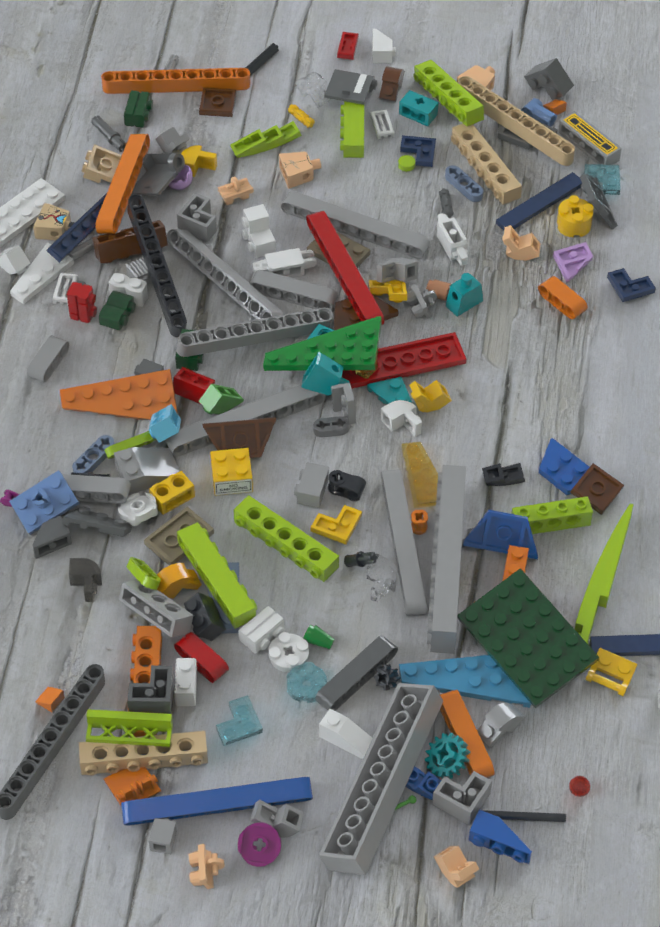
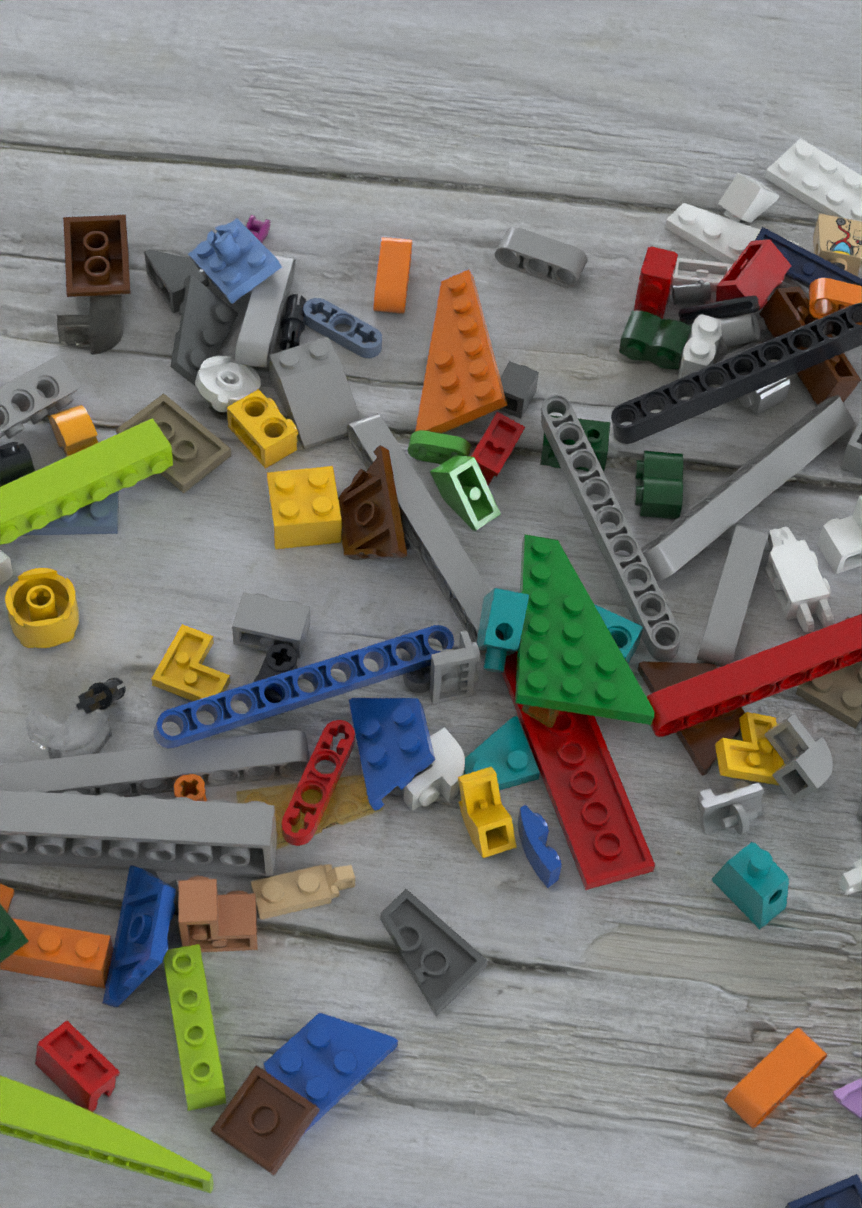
camera: 85 degrees right, 5 degrees up
(37, 573) = (96, 255): none -> reddish brown slope
(56, 429) = (393, 275): none -> orange beam
(85, 258) = (754, 272): none -> red slope
(105, 274) = (720, 309): none -> black axle
(120, 264) = (742, 329): none -> light grey piece
(136, 441) = (360, 368): lime beam -> none
(143, 573) = (77, 397): lime beam -> none
(164, 423) = (393, 403): medium azure brick -> none
(190, 410) = (436, 447): none -> bright green beam
(219, 313) = (660, 484): none -> dark green brick
(273, 529) = (157, 606): lime brick -> none
(301, 590) = (42, 608): none -> yellow brick
(360, 464) = (292, 696): none -> blue beam
(389, 431) = (390, 743): none -> blue wing
(410, 466) = (314, 780): none -> red beam
(440, 288) = (769, 834): nougat brick -> none
(448, 379) = (533, 837): none -> blue slope
(473, 484) = (300, 889): none -> tan hinge
(491, 499) = (214, 919): none -> nougat brick
(502, 476) = (307, 949): black slope -> none
(503, 423) = (431, 950): none -> dark grey wing
(575, 565) = (76, 1066): none -> red hinge

